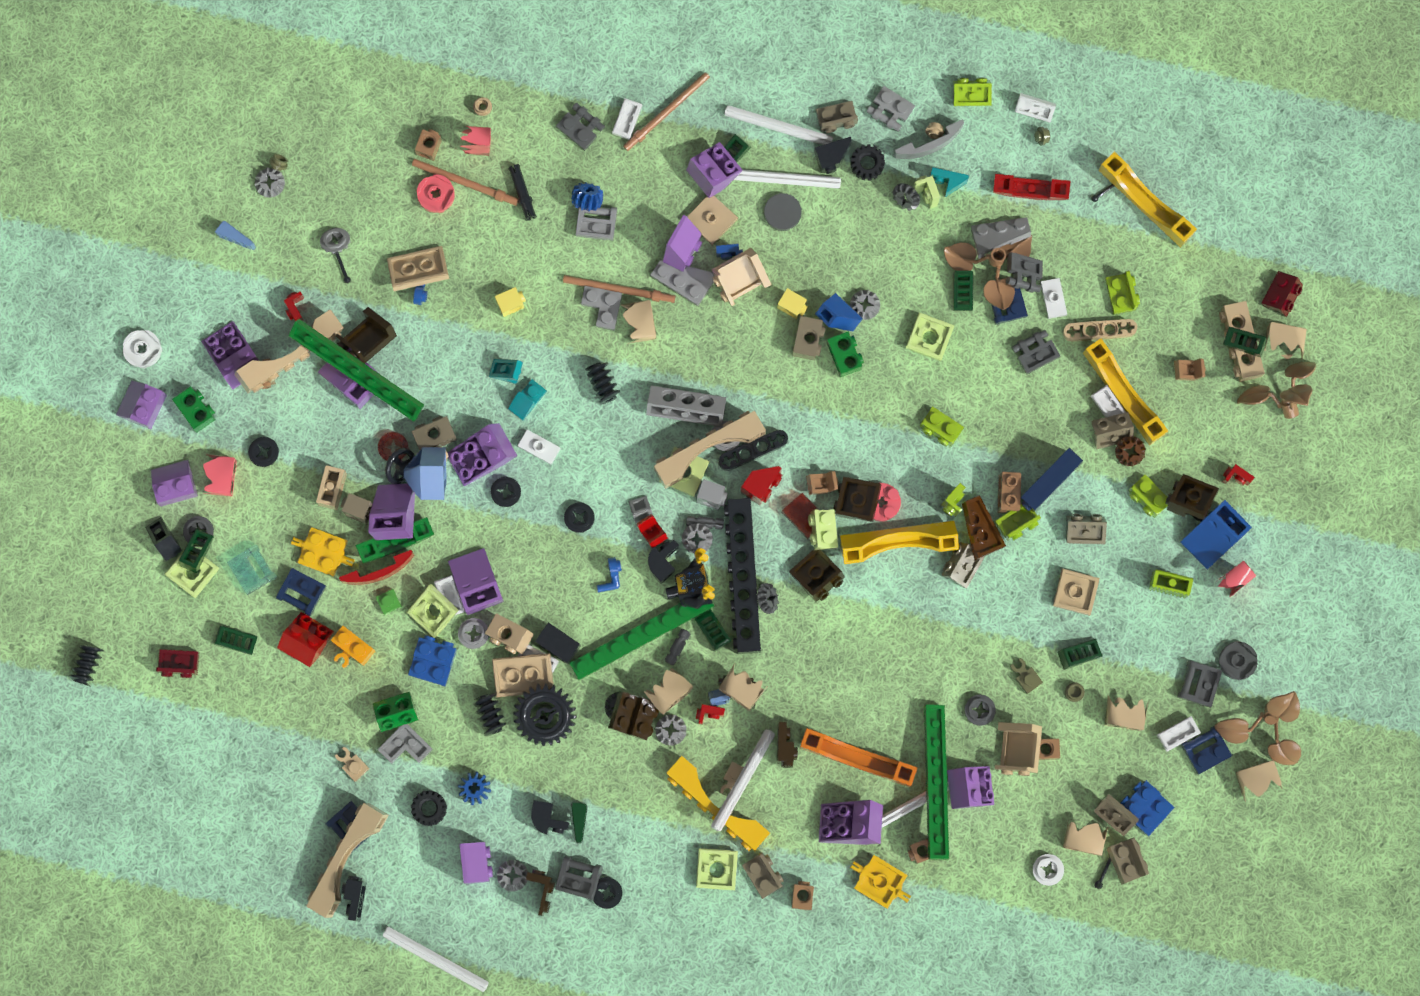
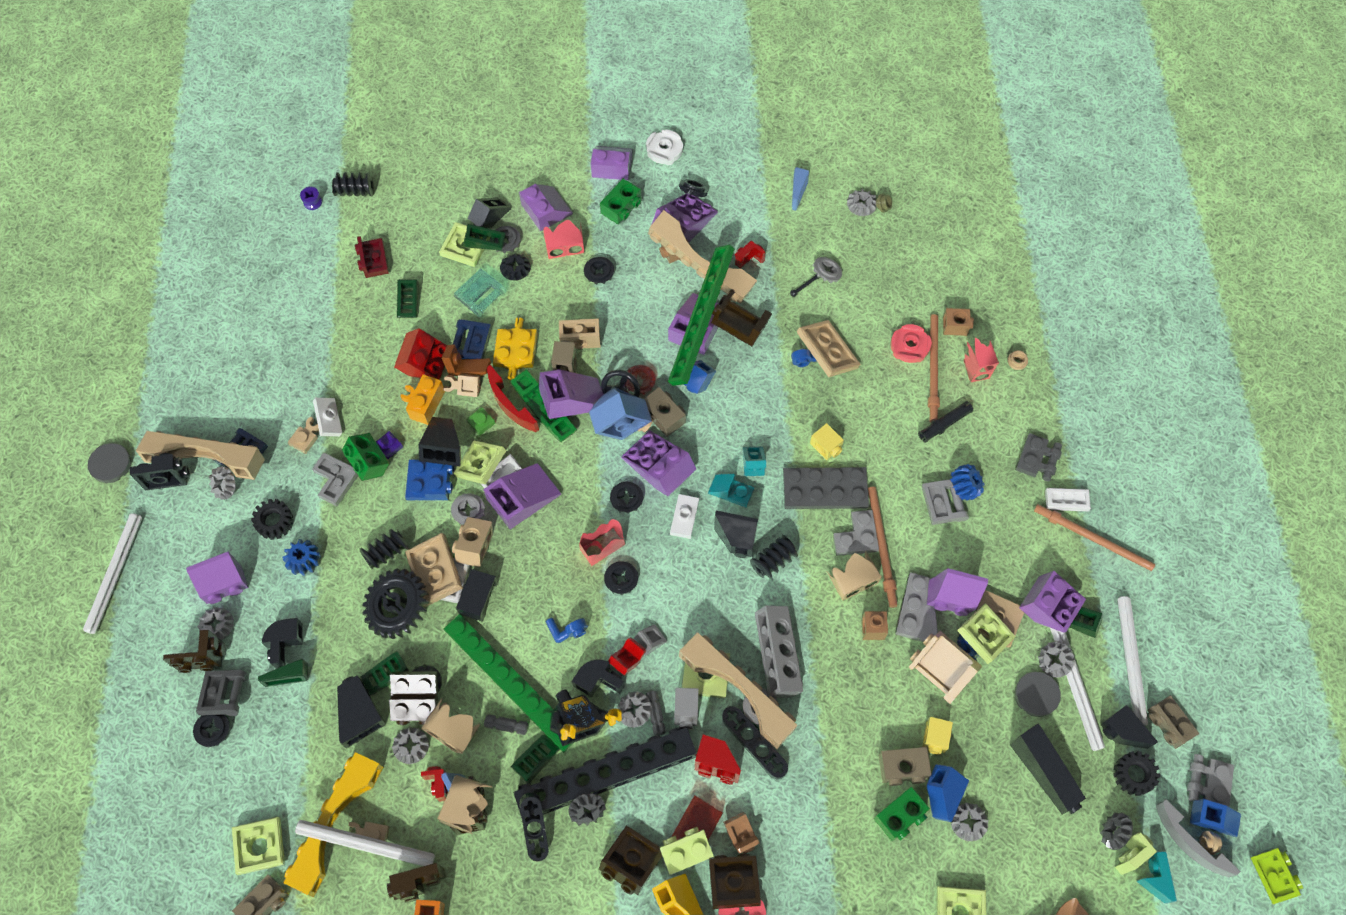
camera: 75 degrees right, 15 degrees down
(89, 712) = (311, 198): none -> dark purple wheel
(202, 335) = (693, 188): none -> black gear
(236, 537) = (521, 270): none -> black gear
(322, 950) = (109, 463): none -> dark grey tile
(329, 601) = (456, 366): none -> dark orange bracket
(340, 740) = (327, 417): none -> white plate
(349, 605) = (465, 384): none -> tan plate
(371, 846) = (227, 486): none -> light grey gear
(385, 689) = (389, 444): none -> dark purple tile
(406, 638) = (440, 443): none -> black slope
(412, 388) = (700, 377): none -> blue brick
(536, 506) = (606, 551): none -> coral piece
(551, 318) = (825, 488): none -> dark grey plate
(573, 407) = (736, 532): none -> black slope
(596, 722) = (380, 667): none -> dark green slope
(629, 767) = (356, 712): none -> black slope
(688, 320) = (874, 625): none -> medium nougat brick
(724, 223) = (998, 633): none -> yellowish green piece
(762, 178) = (1066, 658): none -> light grey gear
(777, 640) = (534, 835): none -> black beam
(845, 228) = (1048, 769): none -> black slope
(918, 118) = (1215, 817): none -> blue slope

